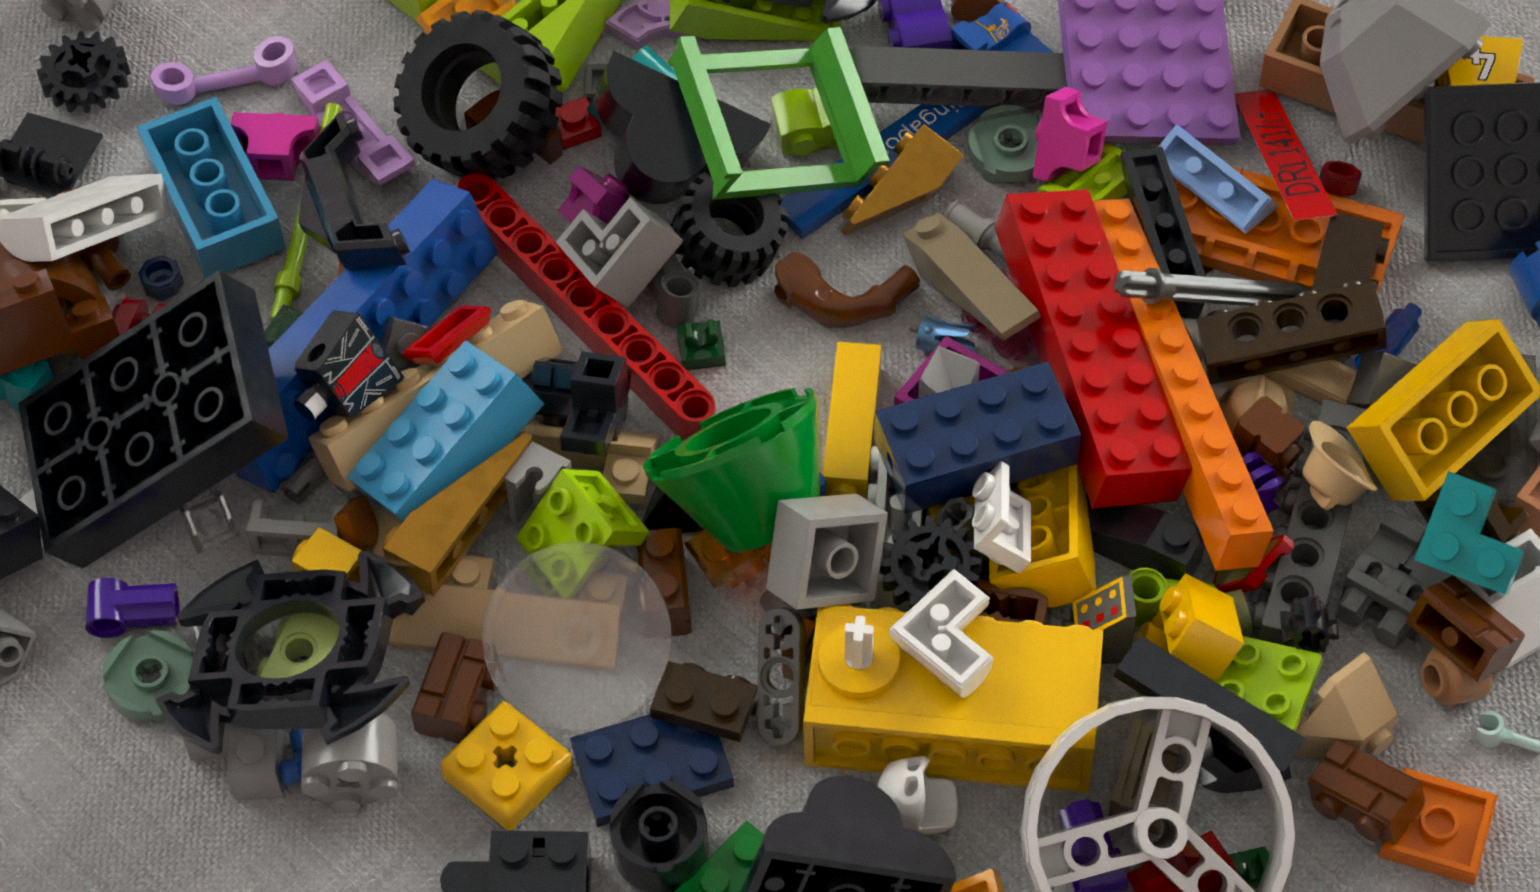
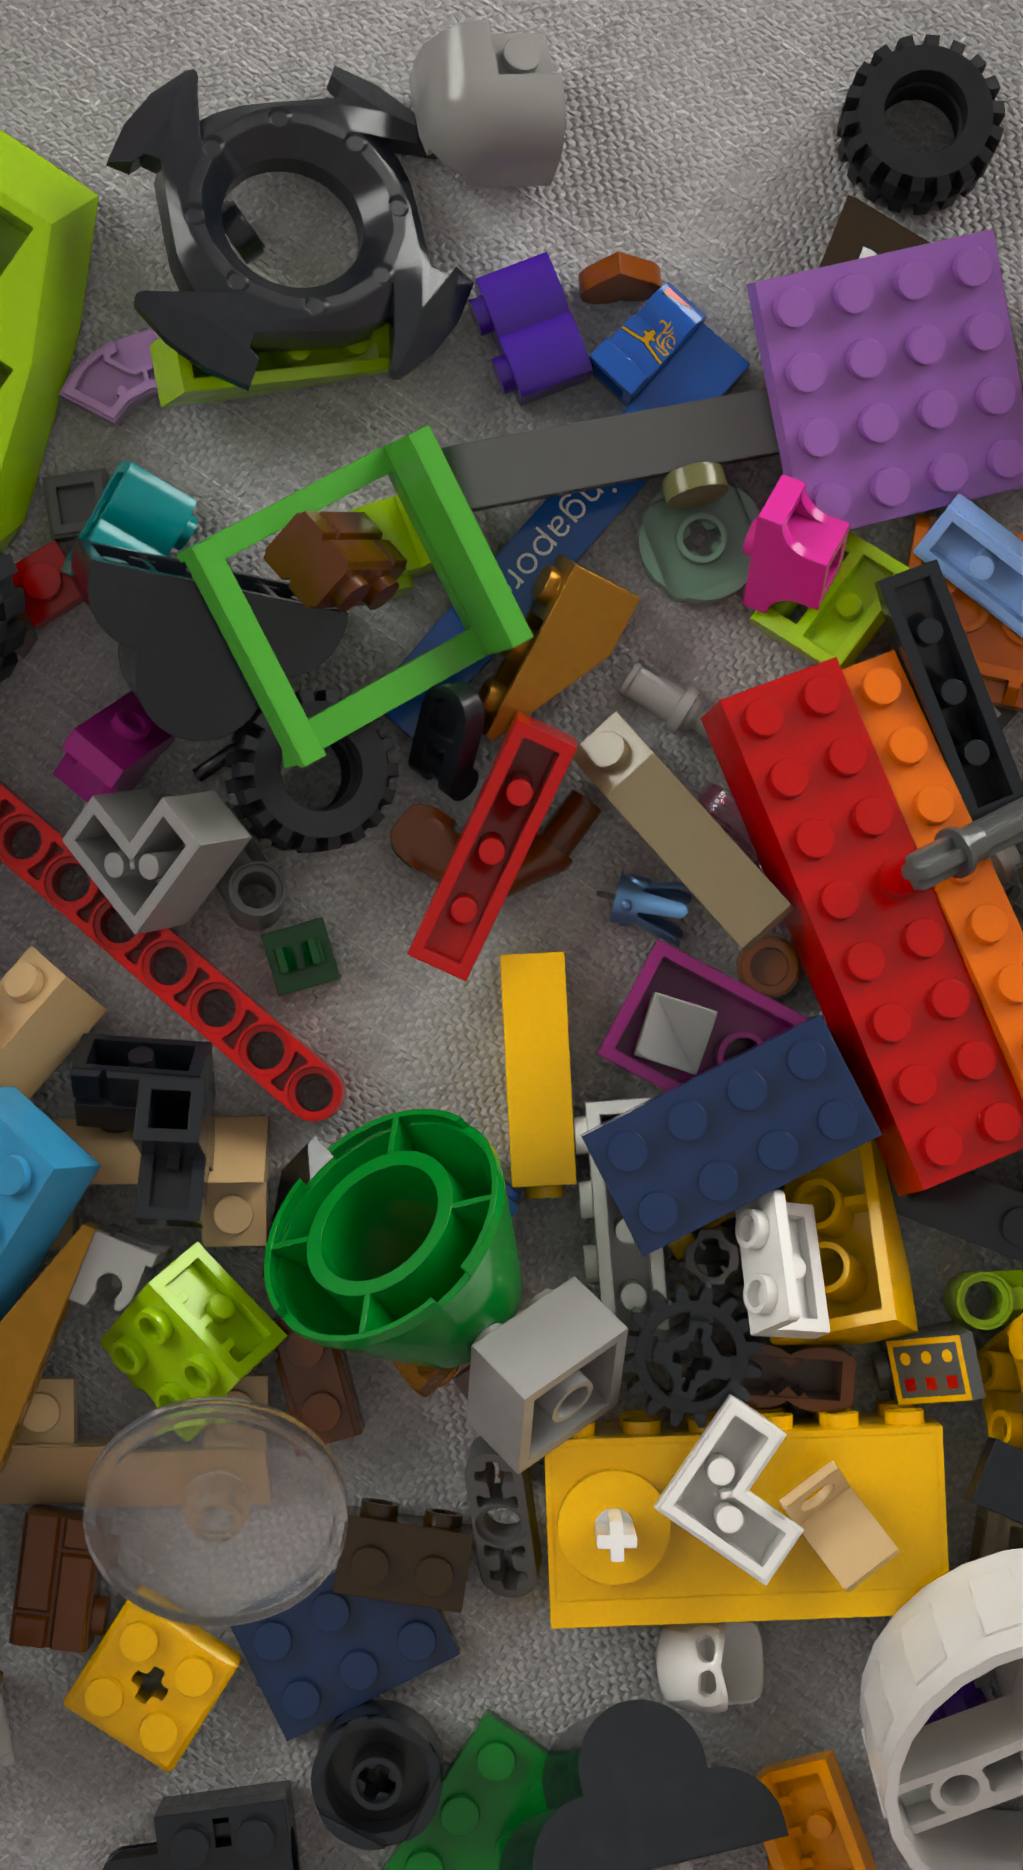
camera: 10 degrees left, 30 degrees up
(768, 97) = (336, 560): none -> reddish brown brick
(823, 221) = (449, 738): none -> black plate
(845, 268) = (493, 845): none -> red slope
(1009, 101) = (694, 485): none -> olive tile
(1017, 667) = (839, 1527): none -> tan bracket

